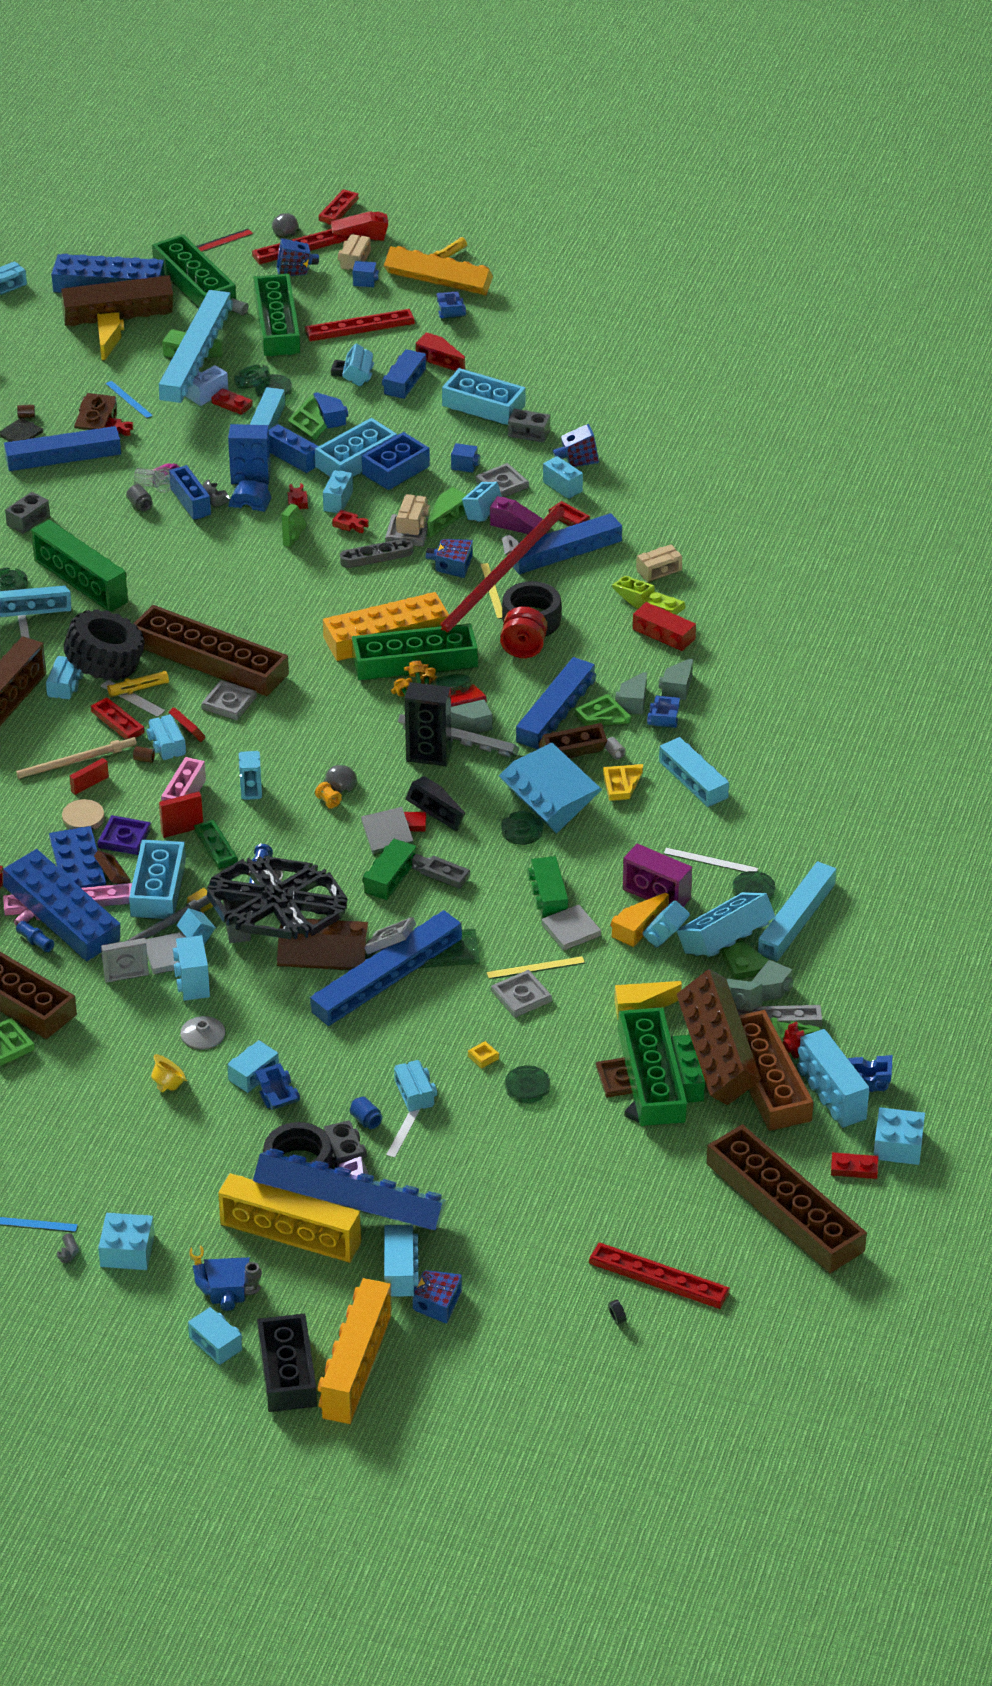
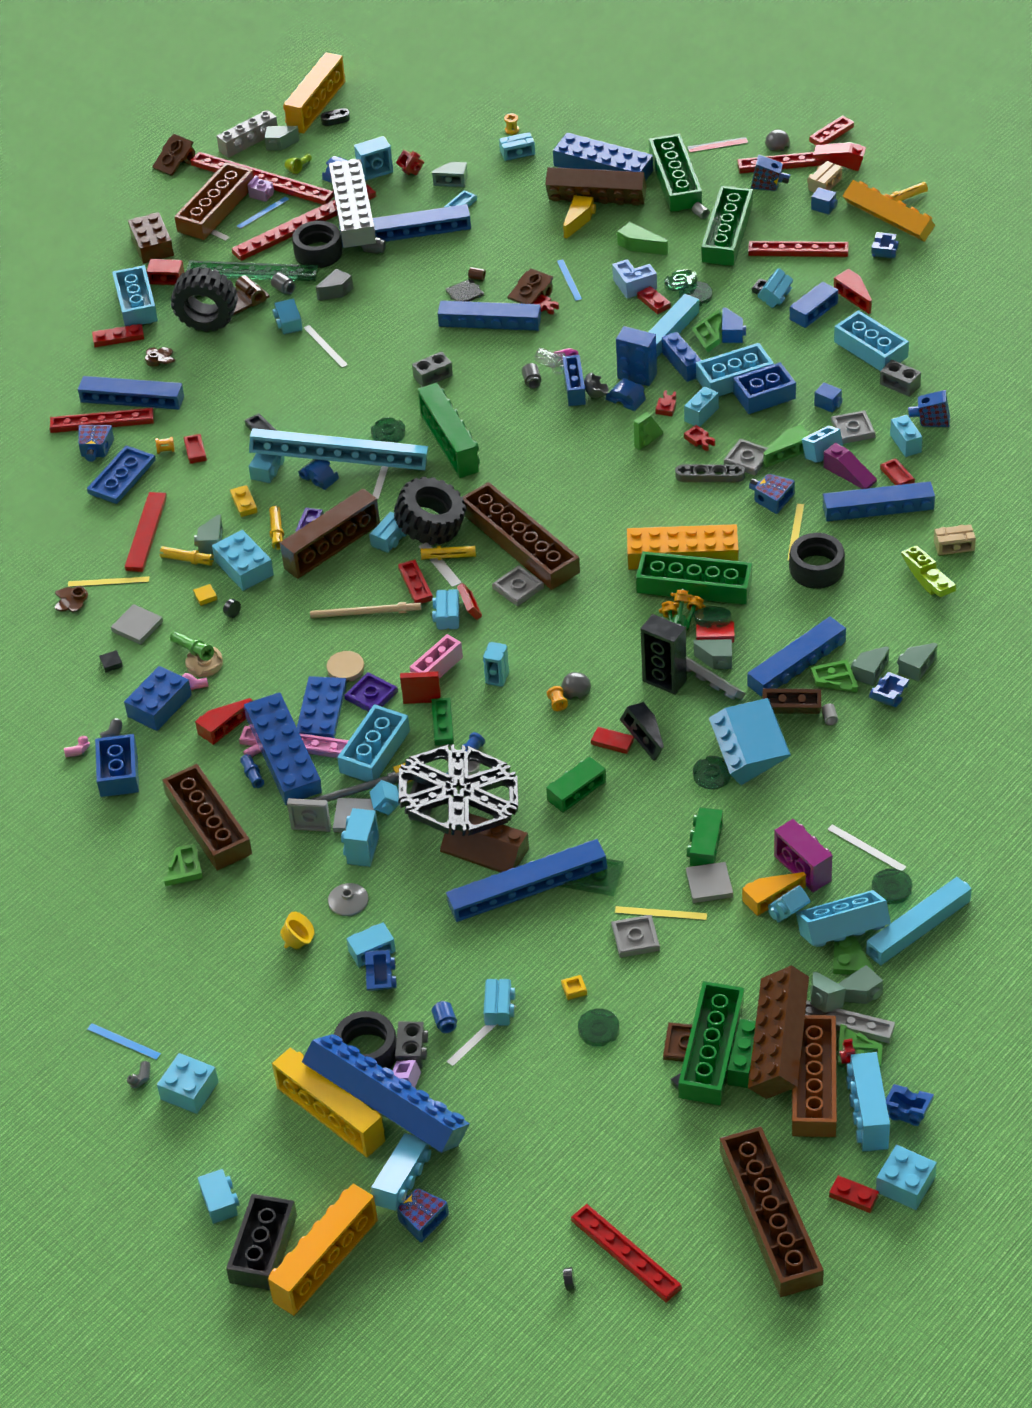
camera: 25 degrees right, 5 degrees up
(89, 776) = (365, 630): red tile -> none
(112, 868) = (343, 722): reddish brown tile -> none
(144, 754) = (421, 621): reddish brown hinge -> none
(195, 346) = (637, 243): medium azure brick -> none
(226, 1279) = (250, 1144): blue torso -> none
(384, 827) = (591, 742): light grey tile -> none
(390, 935) = (542, 850): light grey tile -> none
(412, 514) = (753, 444): tan brick -> none
(441, 870) = (620, 797): dark grey hinge -> none
(502, 568) = (804, 515): red axle -> none
(509, 544) = (824, 494): light grey piece -> none
(523, 632) = (796, 581): red wheel -> none
(622, 780) = (821, 748): yellow wing -> none
(646, 995) = (738, 971): yellow slope -> none
(664, 626) = (929, 604): red brick -> none
(693, 771) = (890, 756): medium azure brick -> none

